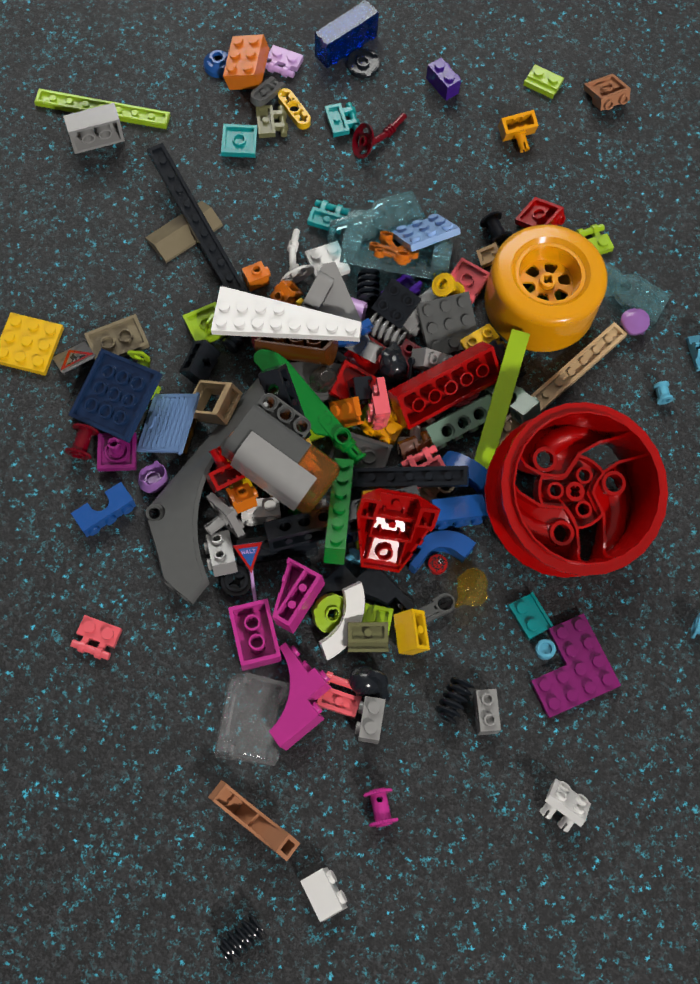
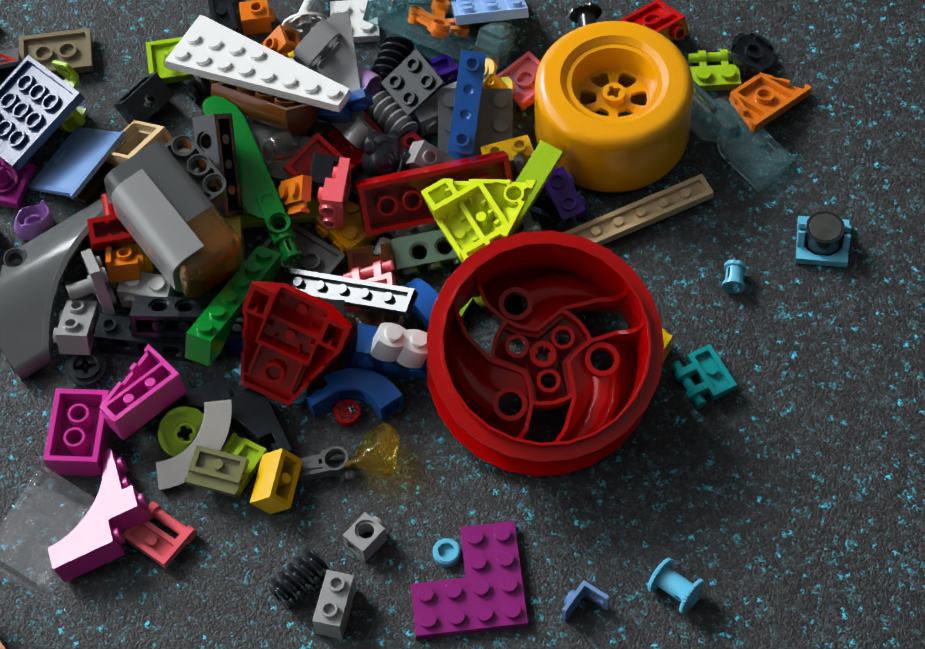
camera: 25 degrees right, 10 degrees down
(249, 553) = (107, 333): piece -> none
(369, 682) = (199, 529): black hair -> none
(371, 720) = (182, 573): light grey brick -> none
(448, 314) = (466, 104): none -> blue fence
(468, 508) = (400, 345): none -> white brick
(483, 661) = (365, 547): none -> light grey brick
(487, 398) = (476, 210): none -> neon yellow wedge
(530, 616) = (442, 506): teal plate -> none
(534, 364) = (564, 195): none -> dark purple bracket
(613, 223) = (752, 53): none -> black tile
(635, 321) = (730, 179): medium lavender hair -> none
(636, 256) = (765, 99): none -> orange wing
(646, 657) = (584, 590): none -> medium blue bracket
(675, 469) = (711, 372): none -> teal plate

